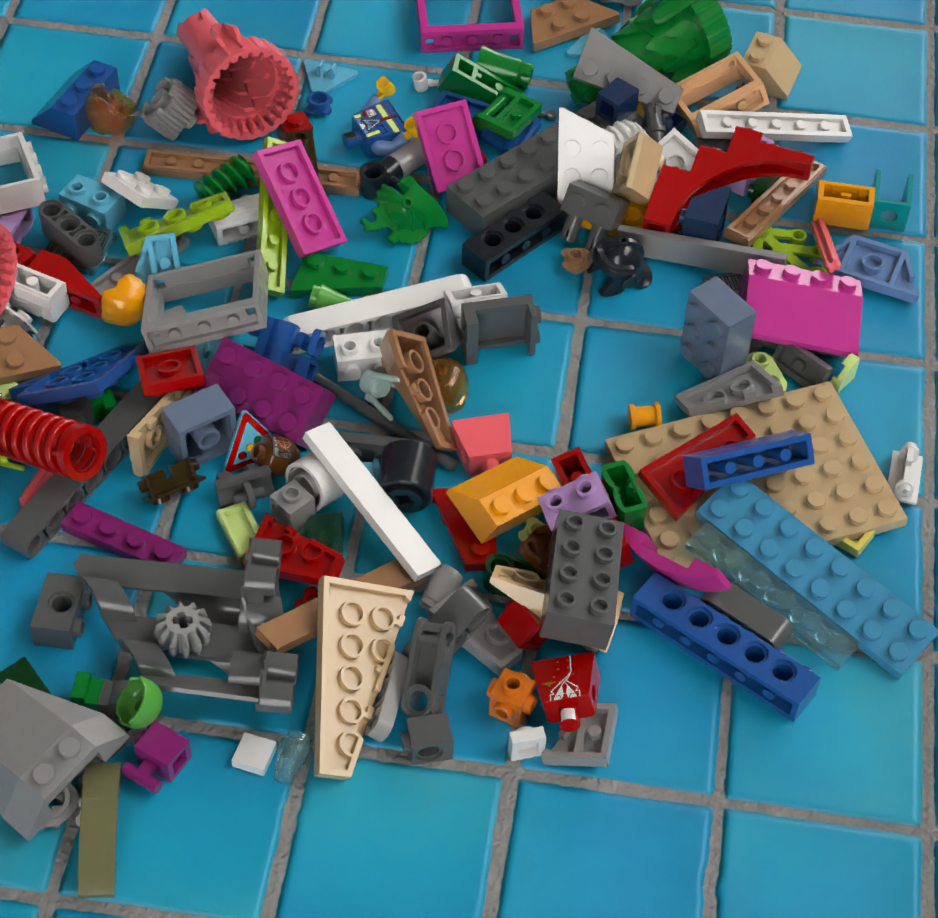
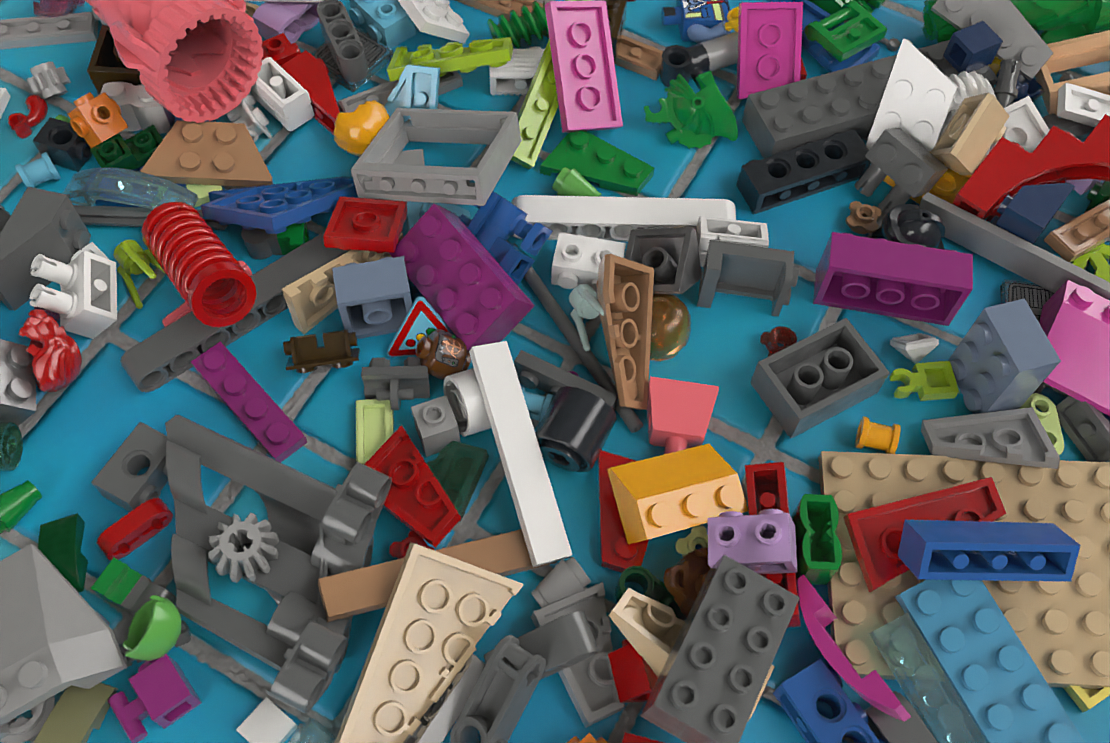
camera: 20 degrees right, 10 degrees up
(78, 653) = (134, 529): none -> red beam
(544, 372) = (778, 335): none -> clear red plate
(583, 385) = (818, 377): none -> dark grey brick
(614, 297) = (893, 278): none -> magenta brick
(650, 345) = (915, 346): none -> white slope
(669, 365) = (929, 379): none -> lime plate

